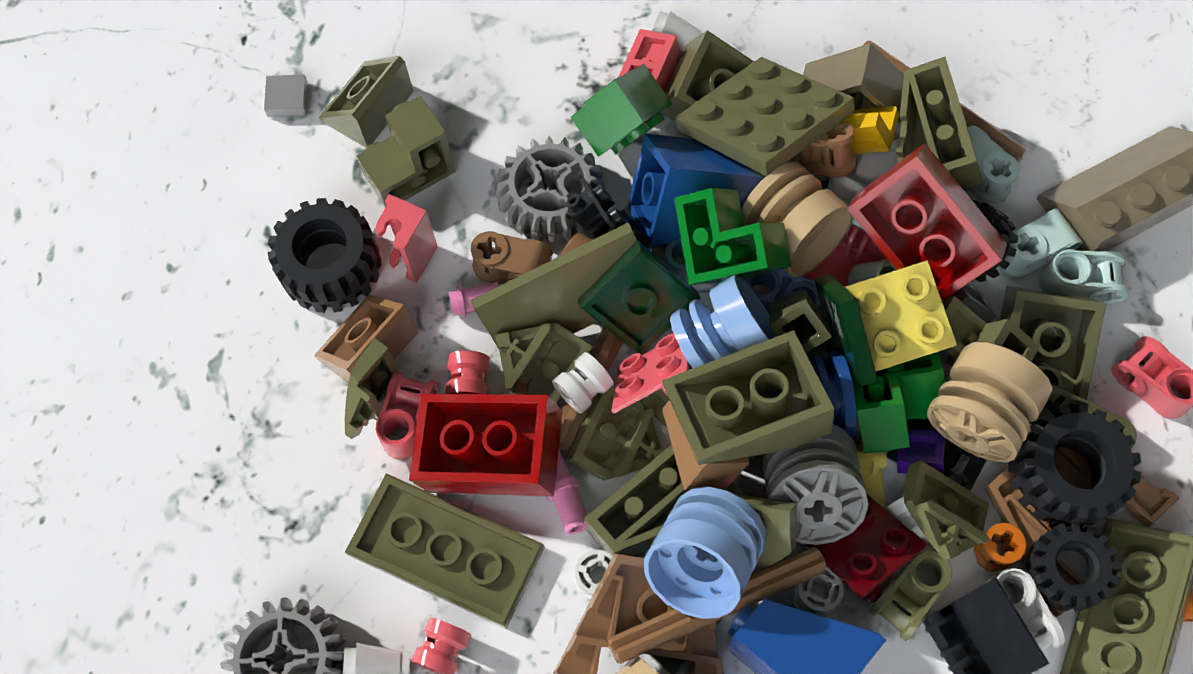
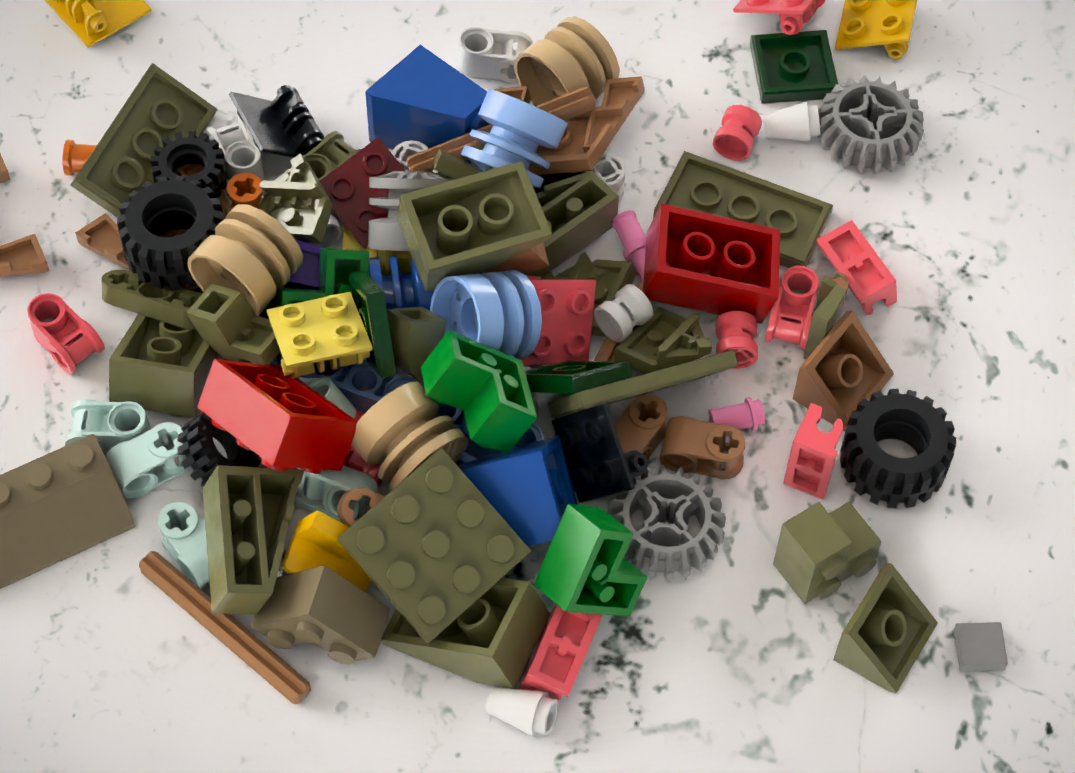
camera: 175 degrees right, 10 degrees down
(331, 459) = (865, 271): none -> coral hinge

